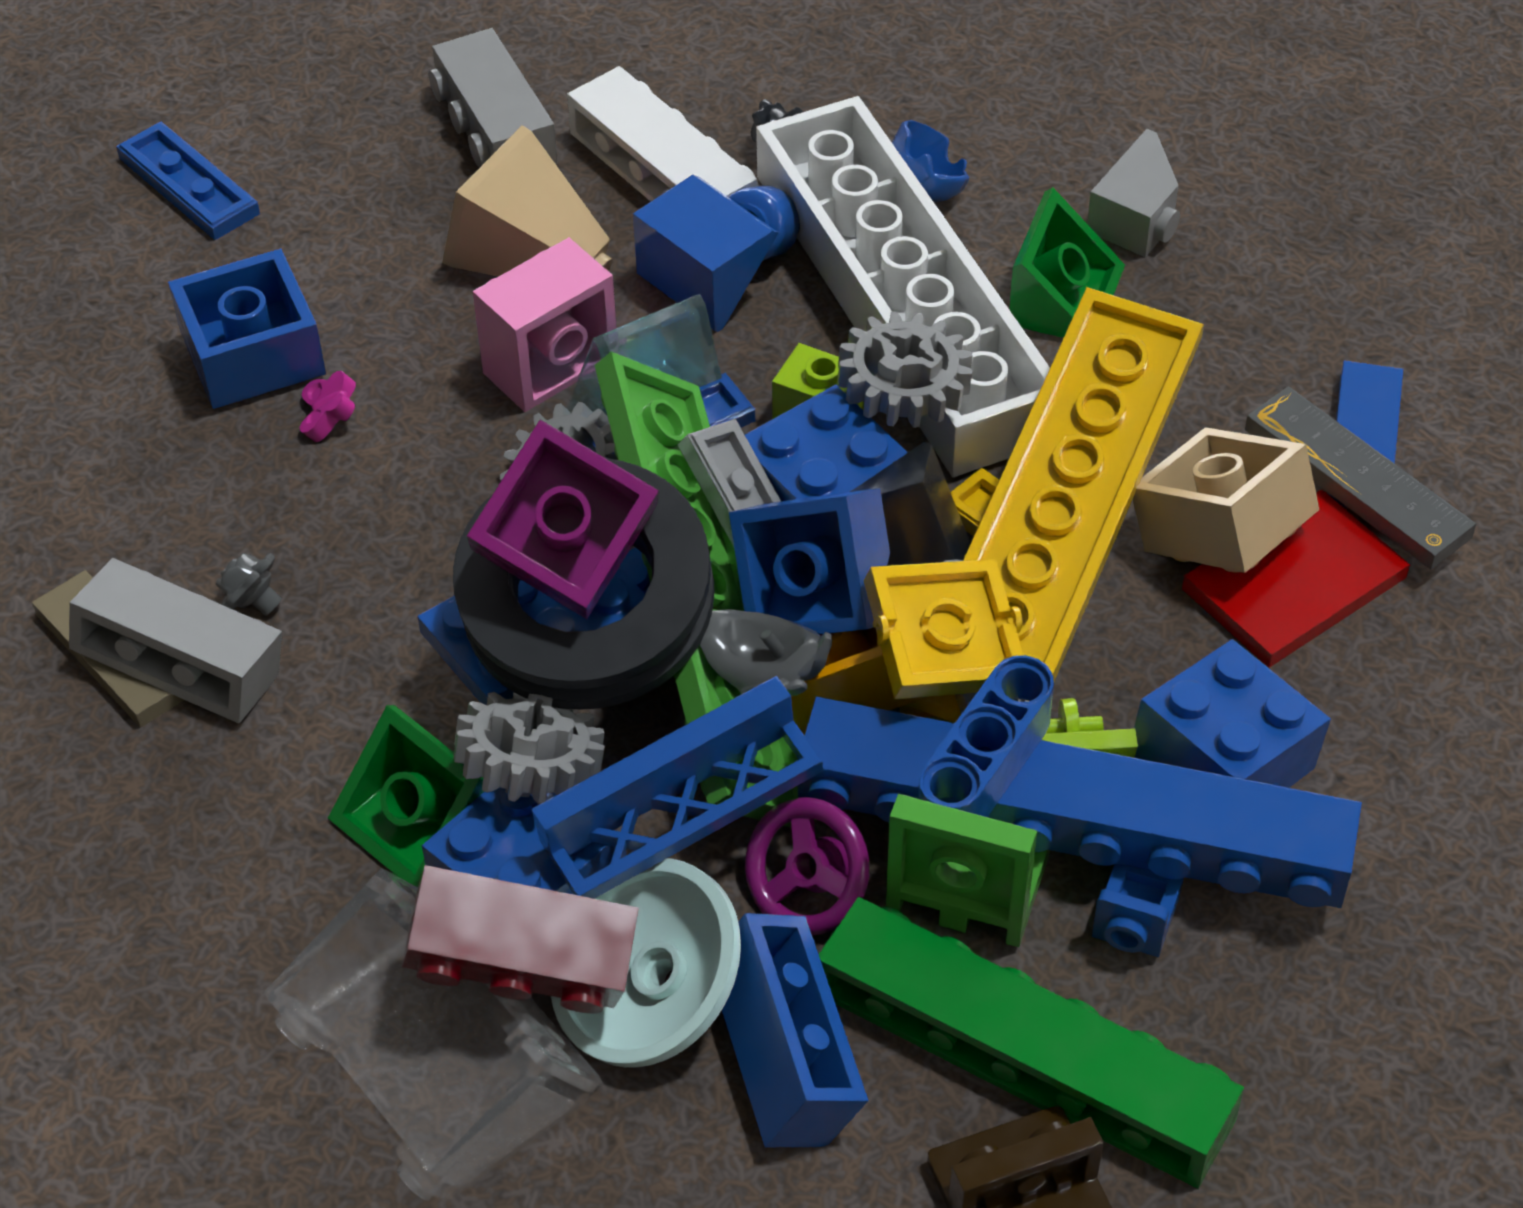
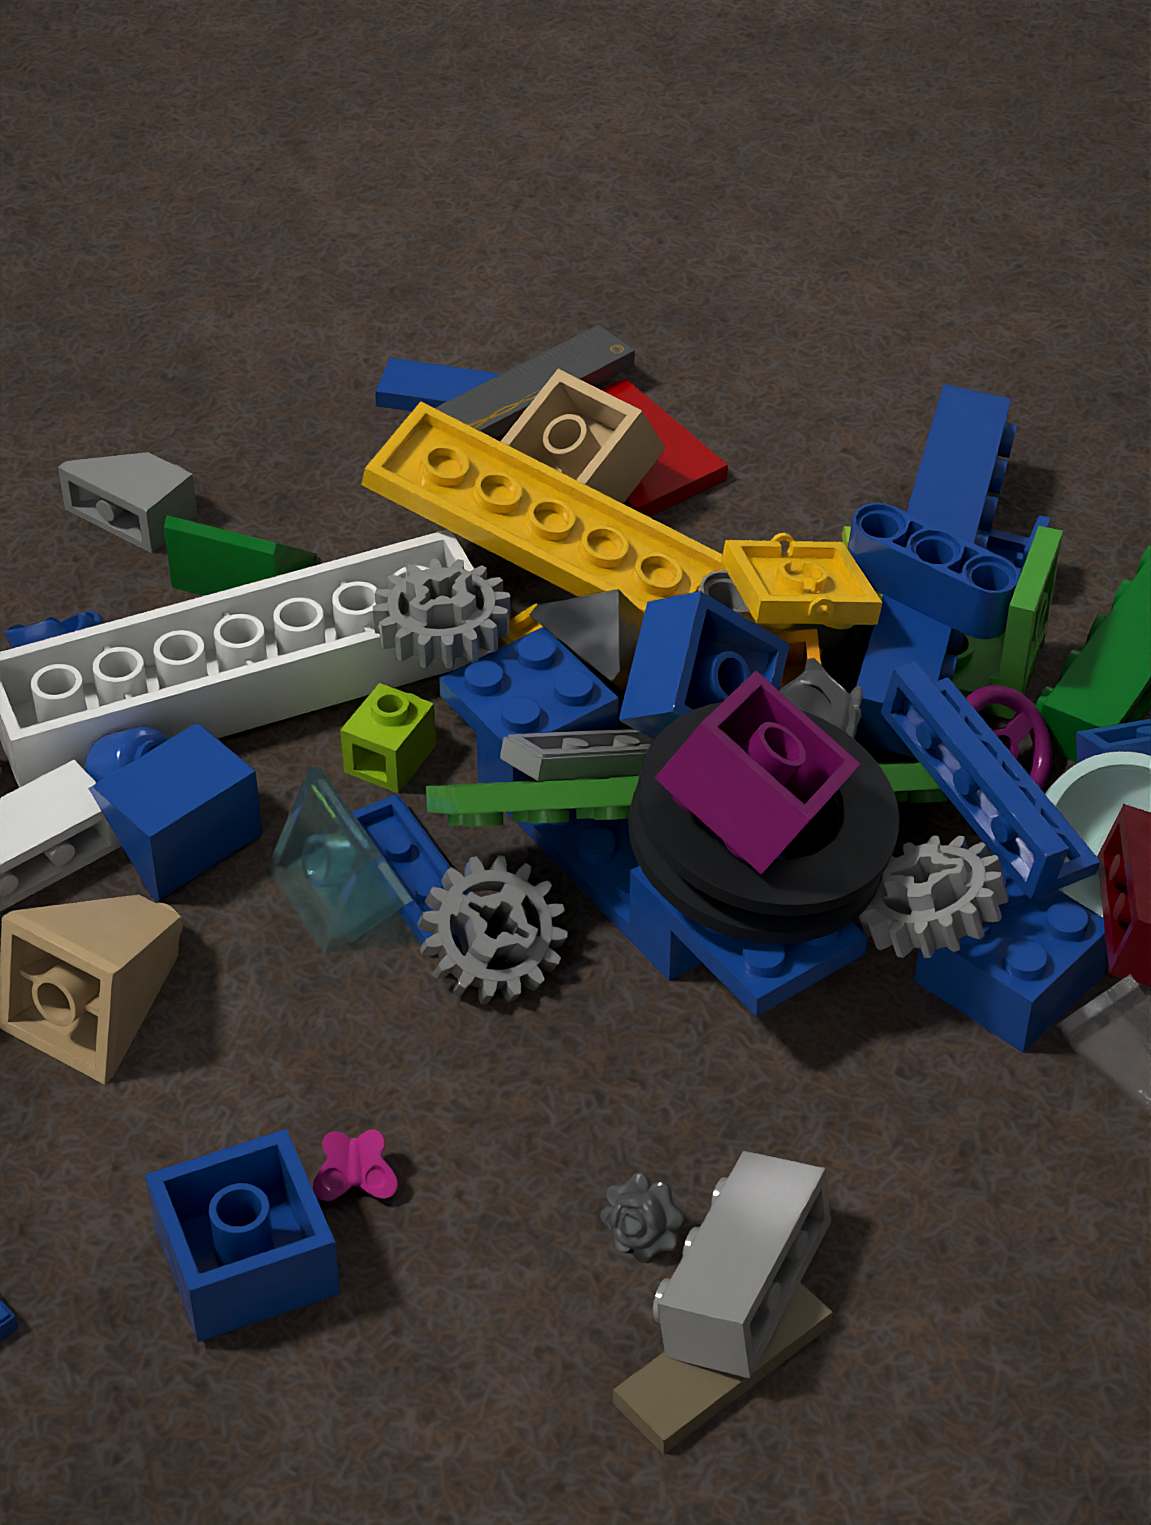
camera: 90 degrees left, 5 degrees down
(402, 793) = (943, 1045): green slope -> none
(542, 321) = (288, 934): bright pink brick -> none
(1232, 721) = (824, 474): blue brick -> none

